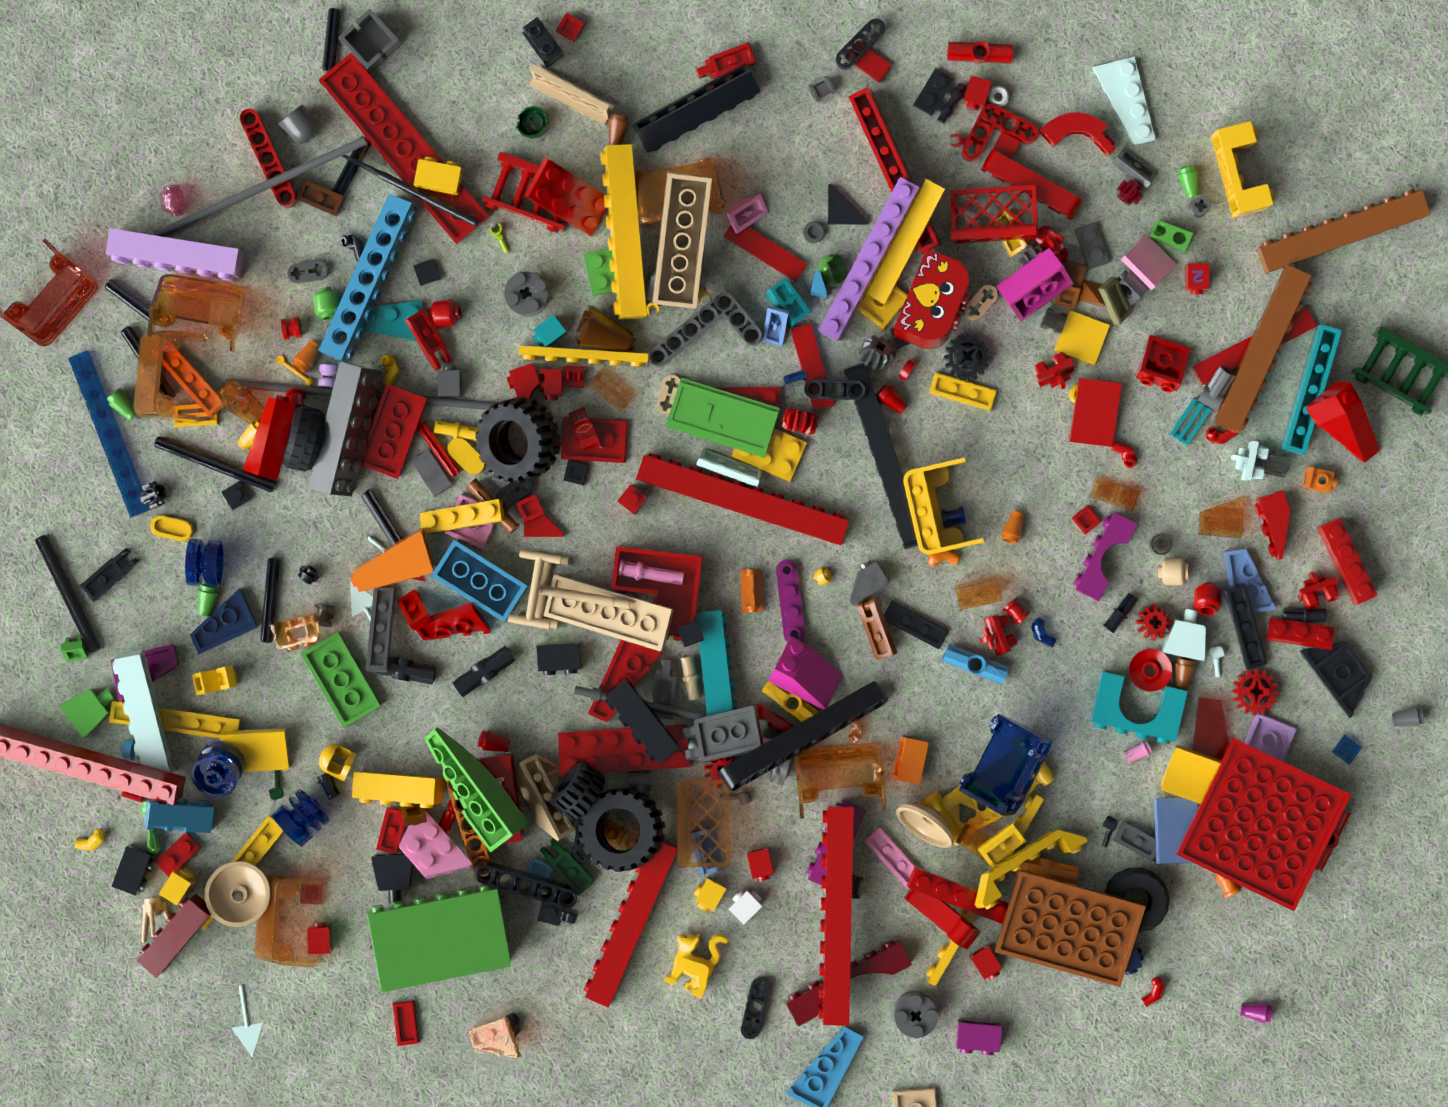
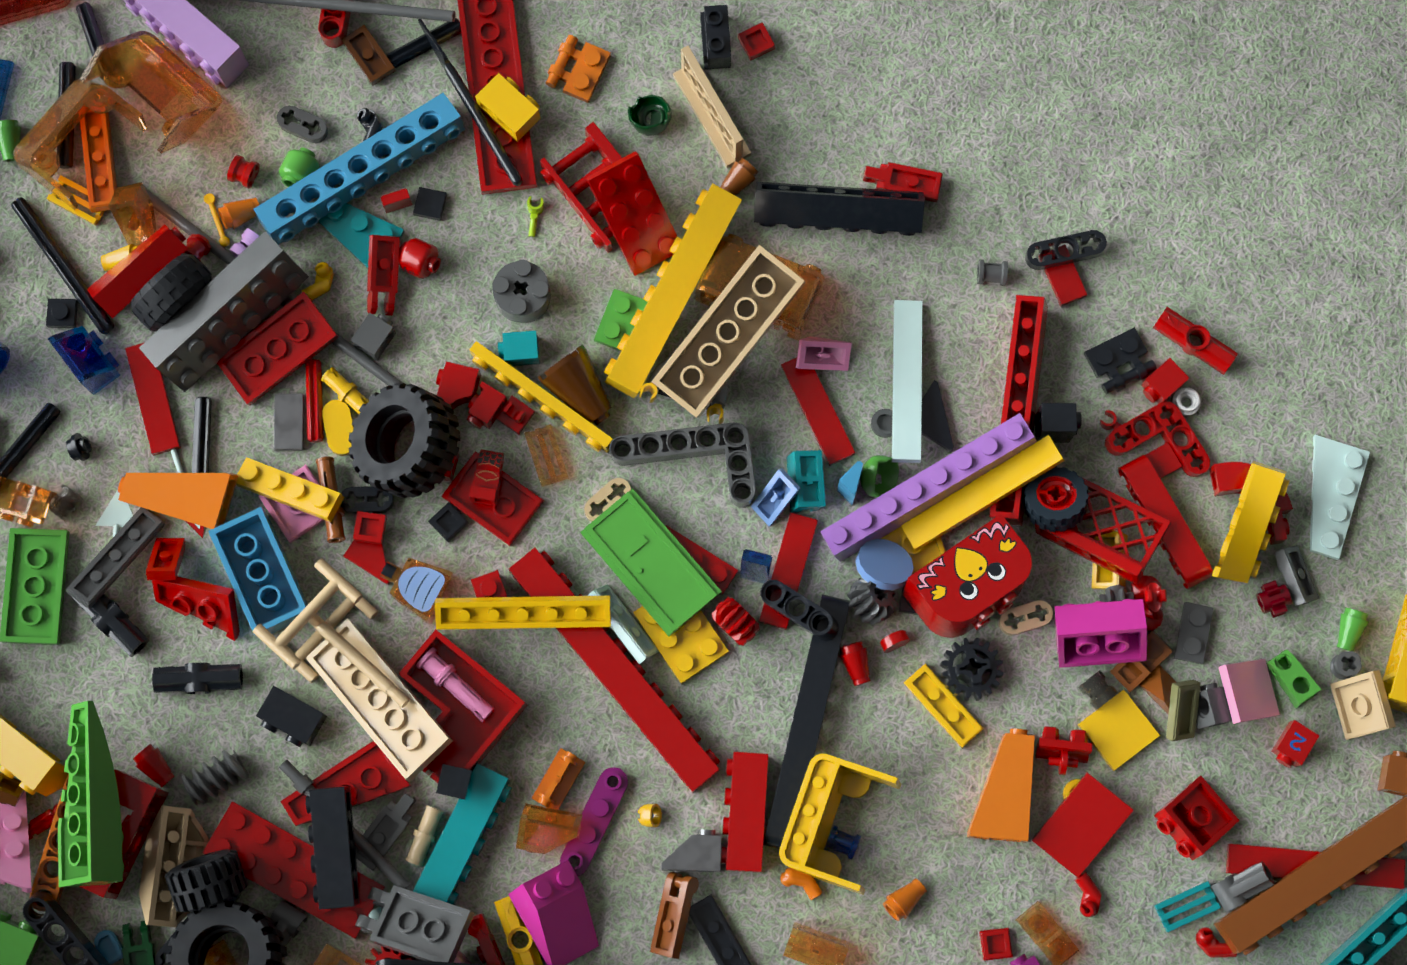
camera: 35 degrees right, 10 degrees down
(275, 515) = (85, 358): none -> clear blue slope
(334, 514) = (153, 402): none -> red tile
(404, 284) = (396, 200): none -> red tile
(471, 119) = (586, 71): none -> orange plate
(536, 725) = (214, 777): none -> dark grey piece
(584, 526) = (417, 585): none -> torso
(664, 501) = (522, 612): none -> yellow plate
(765, 625) = (546, 828): none -> clear orange slope
(811, 196) = (907, 381): none -> light aqua tile
(871, 326) = (884, 564): none -> medium blue tile
(882, 536) = (747, 812): none -> red brick
(925, 164) = (1058, 421): none -> black brick
(966, 219) = (1060, 513): none -> black wheel
(1036, 422) = (1006, 796): none -> orange slope
(1086, 153) = (1250, 523): none -> yellow wedge
(1225, 226) = (1362, 705): none -> tan plate

